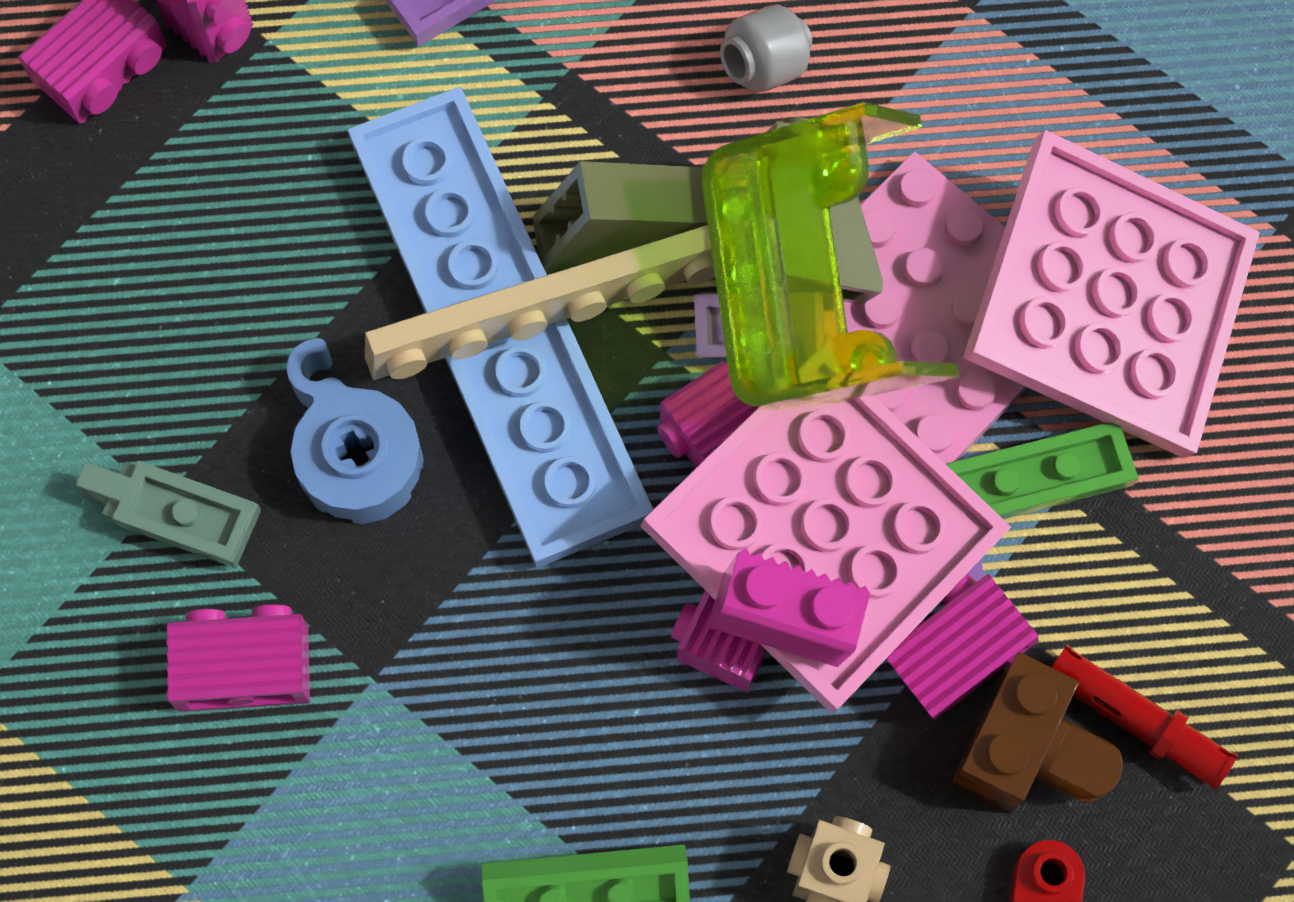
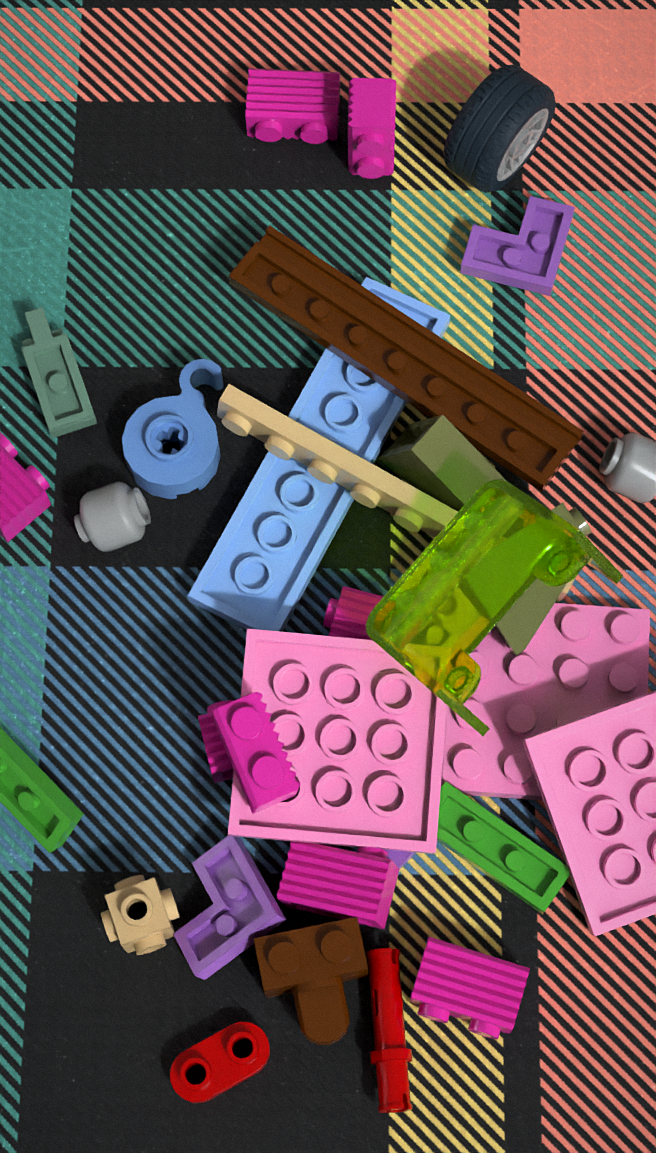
camera: 55 degrees right, 0 degrees up
(383, 571) = (112, 516): none -> light grey head
(465, 158) = (406, 357): none -> reddish brown plate
(914, 765) = (239, 912): none -> medium lavender plate
(1157, 606) = (469, 988): none -> dark pink brick

